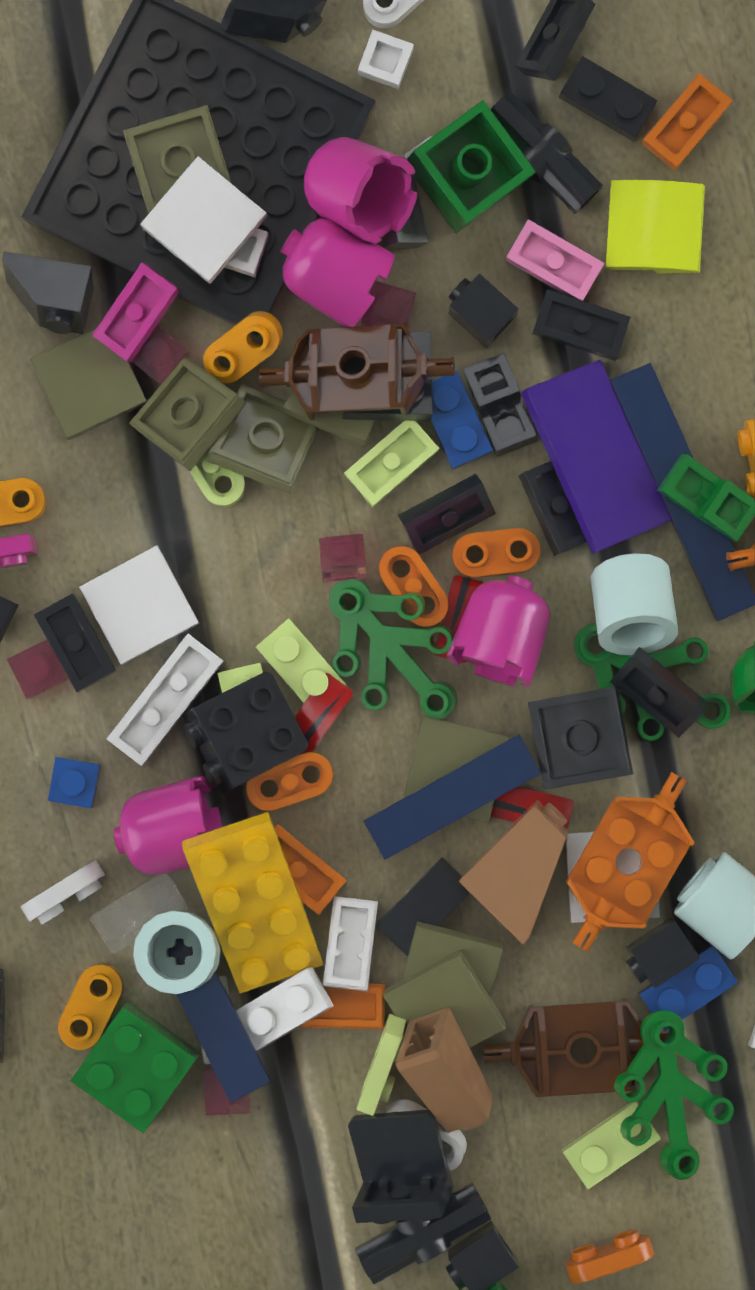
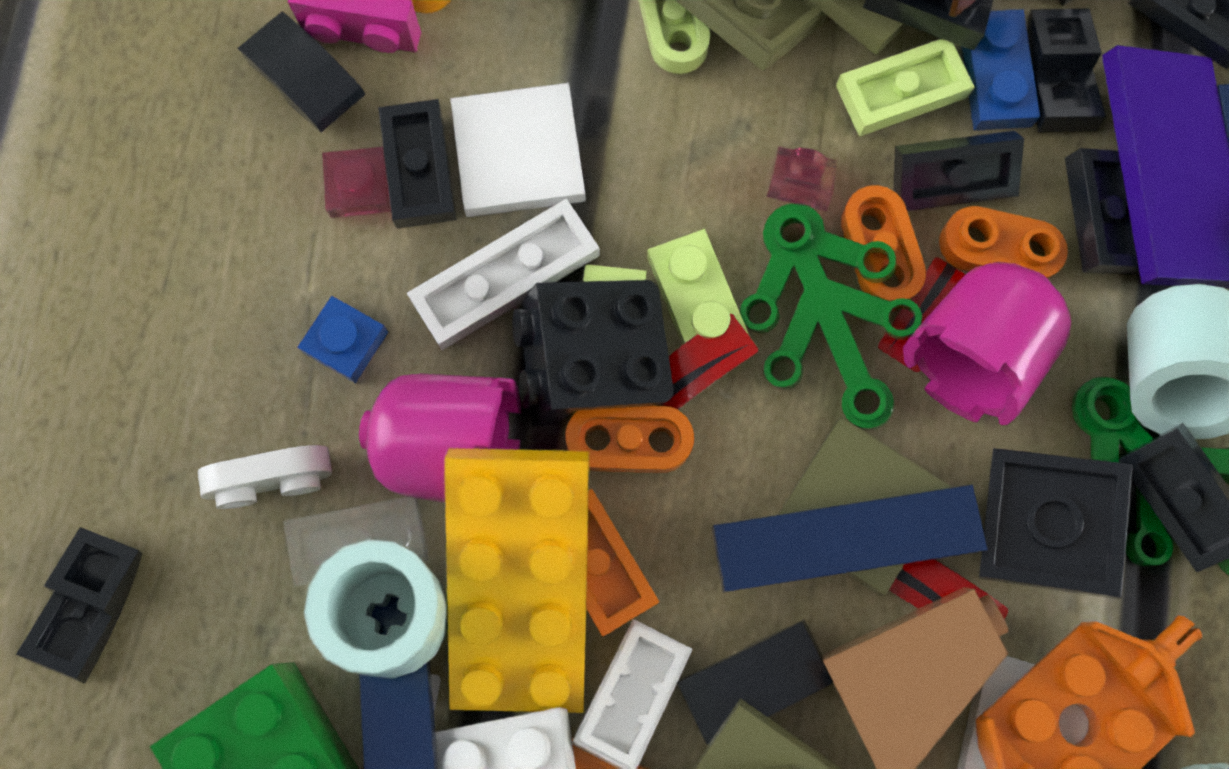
camera: 15 degrees right, 10 degrees down
(90, 1007) = (235, 649): light orange plate -> none

